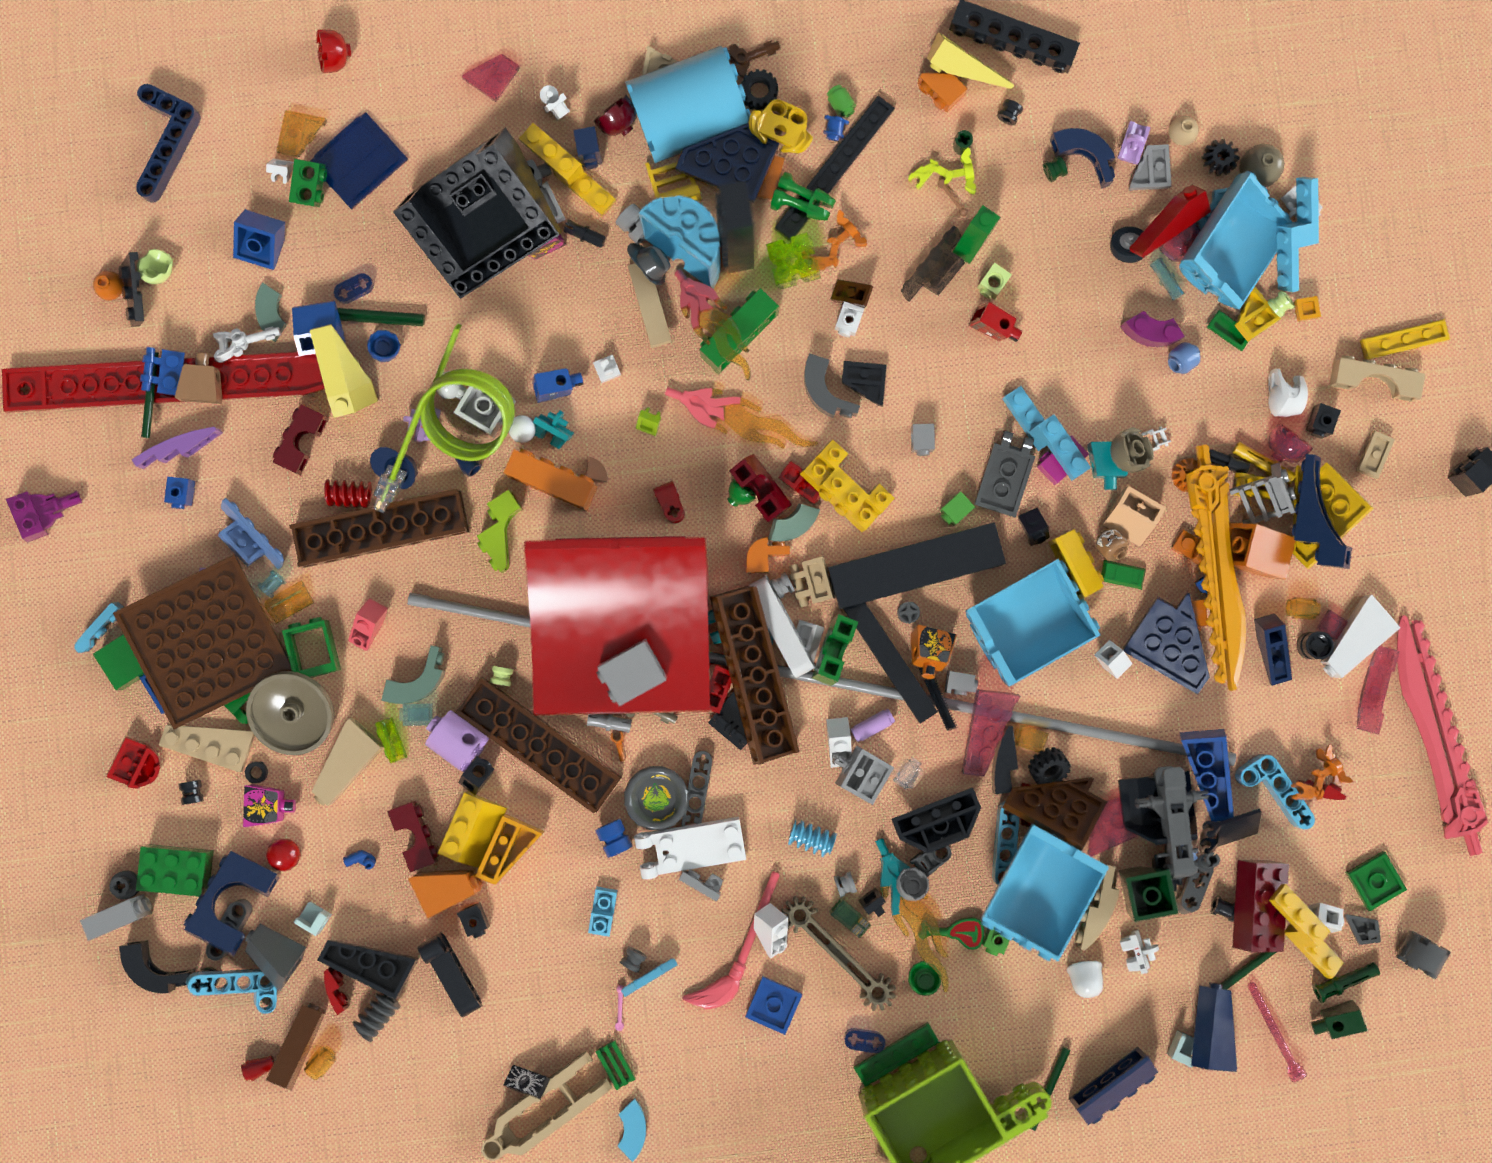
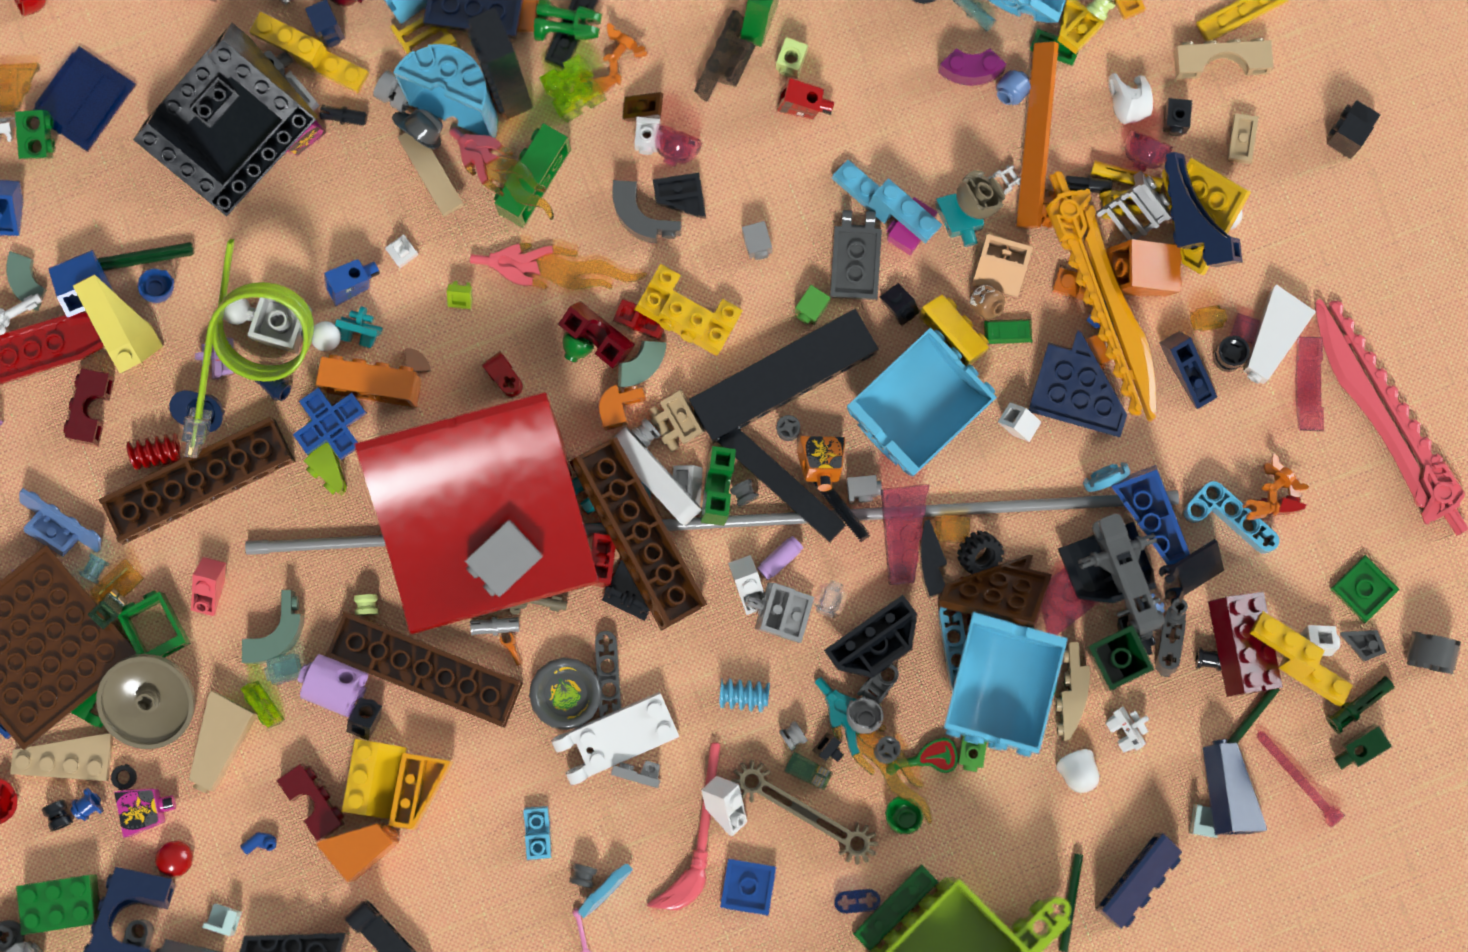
camera: 10 degrees left, 5 degrees down
(218, 789) = (86, 805): none -> blue brick
(277, 622) = (109, 606): none -> clear green leg
(355, 293) = (106, 229): clear blue beam -> none
(474, 912) = (396, 867): black brick -> none
(507, 509) = (329, 423): none -> blue plate
(614, 839) = (530, 748): blue wheel -> none
(855, 660) = (744, 492): none -> dark grey wheel
(872, 336) = (676, 145): none -> clear pink cylinder
(929, 918) = (890, 746): none -> dark grey wheel
(1177, 728) = (1106, 477): none -> medium azure tile
(1195, 406) = (1037, 135): none -> orange tile

